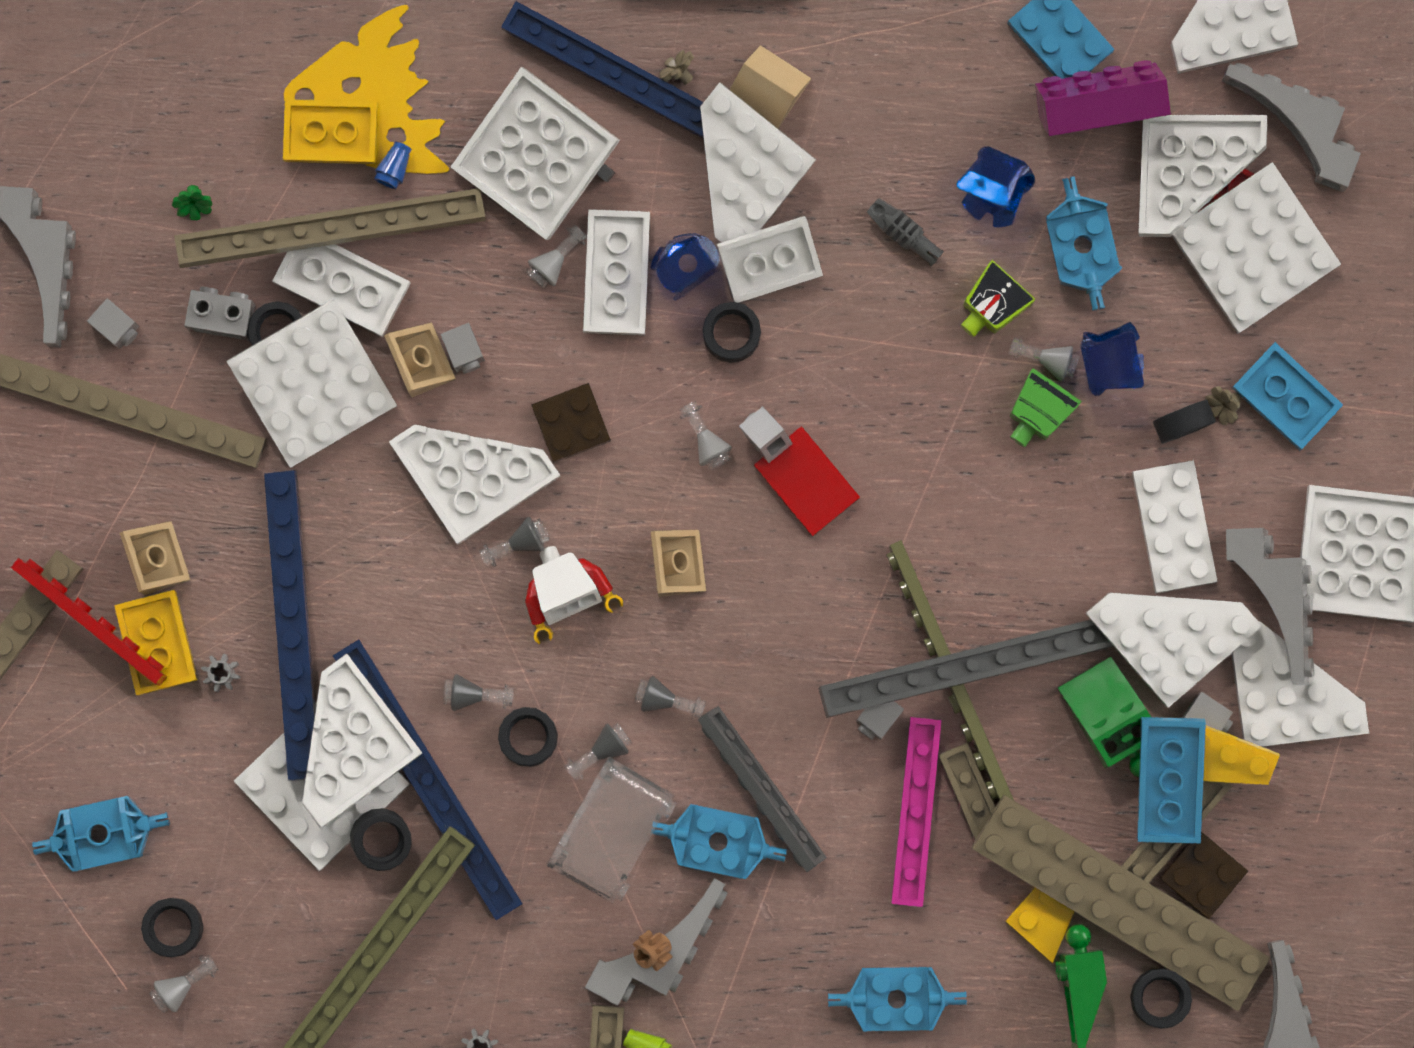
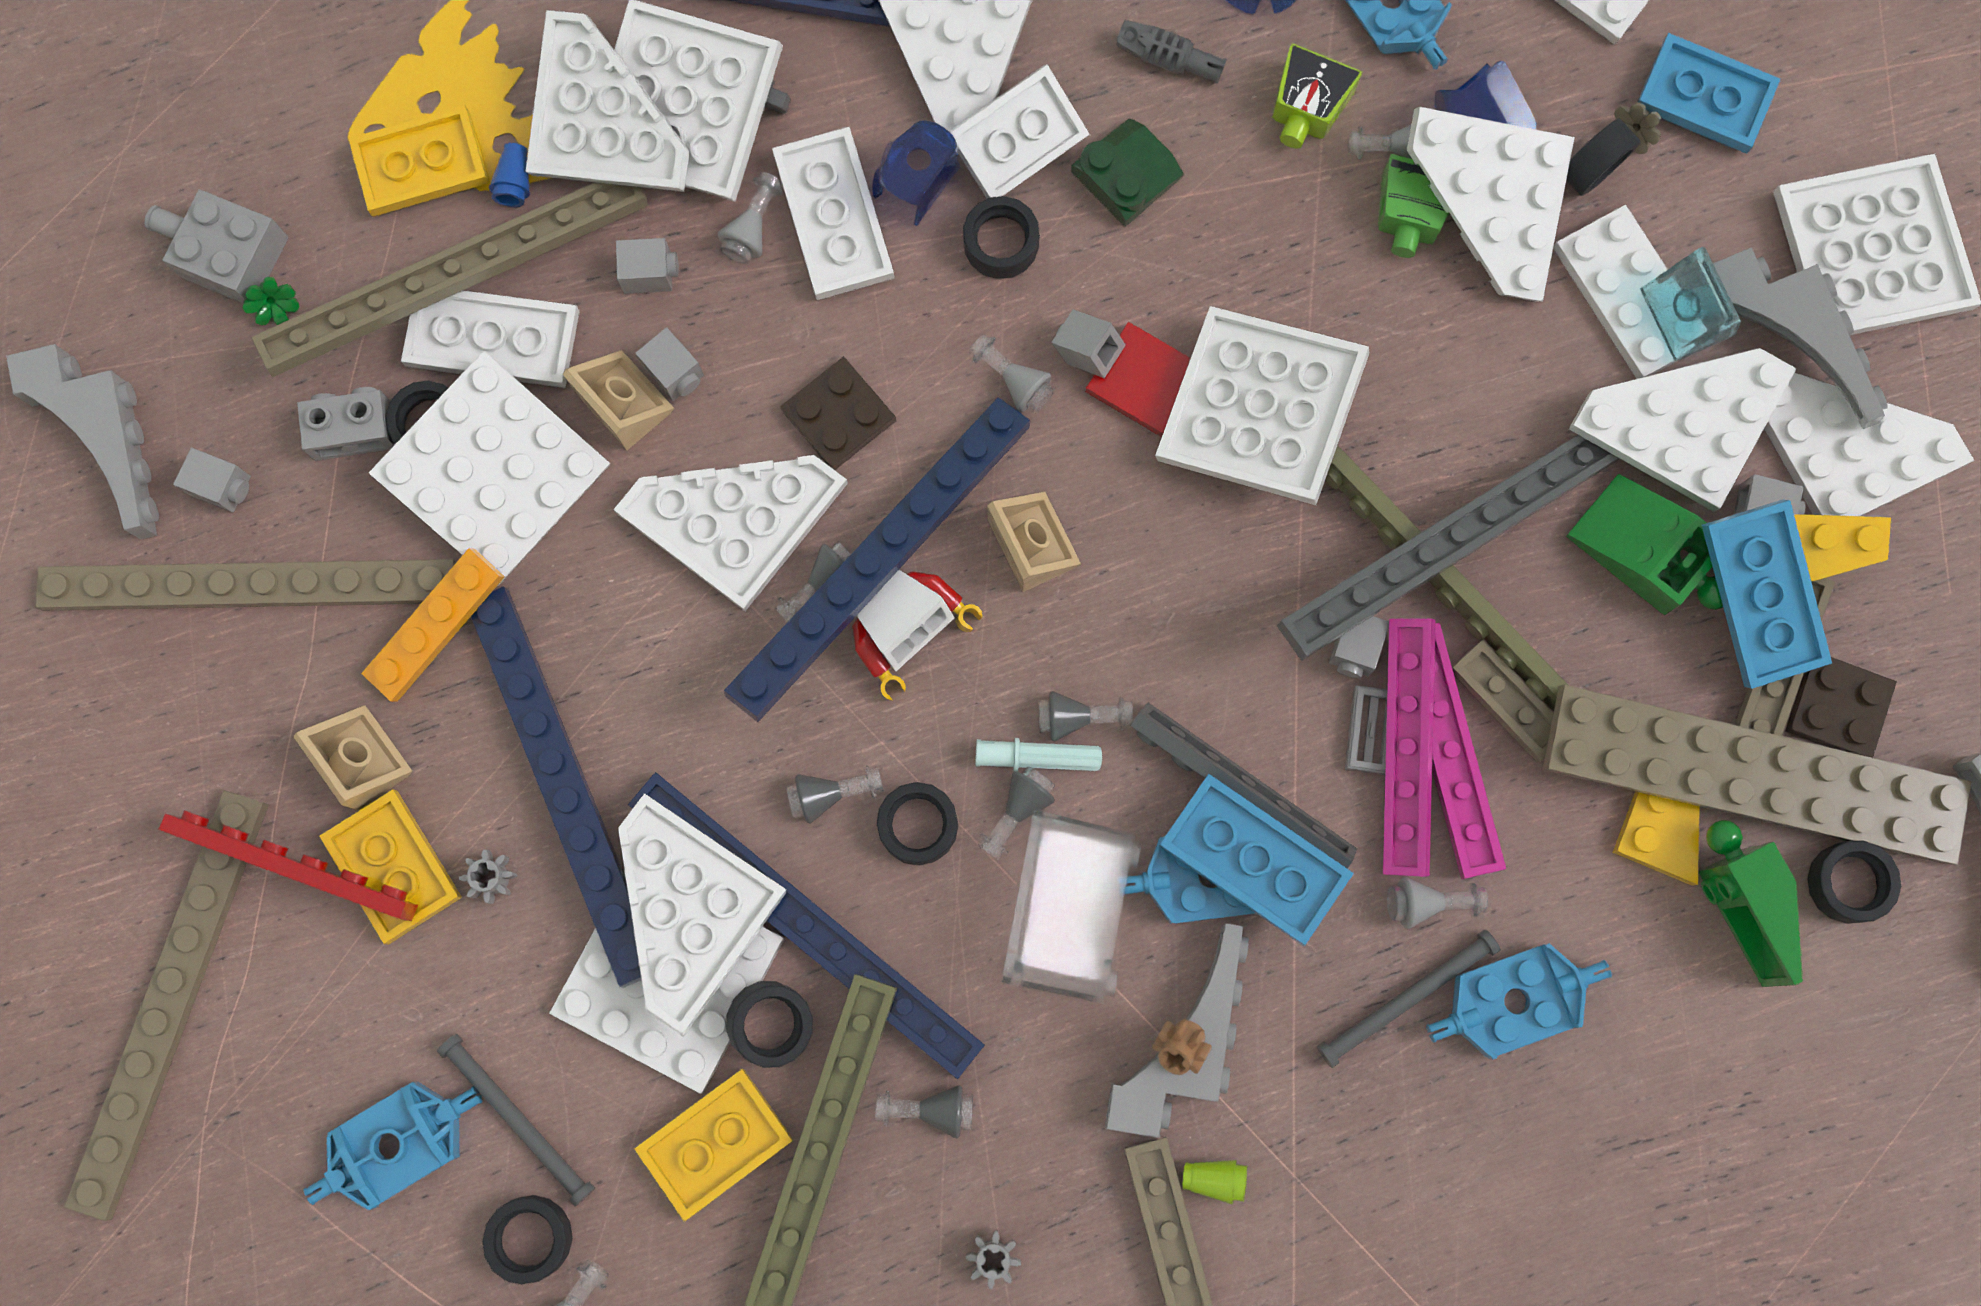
camera: 20 degrees left, 5 degrees down
(168, 149) = (219, 244): none -> light grey brick
(188, 844) = (515, 1119): none -> dark grey bar
(237, 482) = (432, 625): none -> light orange plate
(317, 907) = (713, 1144): none -> yellow plate
(469, 147) = (595, 115): none -> white plate
(469, 267) = (645, 265): none -> light grey brick
(481, 939) = (946, 1111): none -> piece
(564, 541) = (876, 560): none -> dark blue plate
(627, 717) = (1037, 755): none -> light aqua axle
(749, 842) = (1256, 860): none -> dark azure plate
(823, 971) = (1404, 1001): none -> dark grey bar
(842, 310) = (1127, 170): none -> dark green slope
(852, 909) = (1414, 902): none -> piece
(871, 523) = (1263, 404): none -> white plate
(879, 754) = (1366, 765): none -> light grey tile
(886, 800) = (1409, 747): none -> dark pink plate
(1098, 424) = (1500, 189): none -> white plate
(1203, 556) = (1691, 305): none -> clear light blue slope

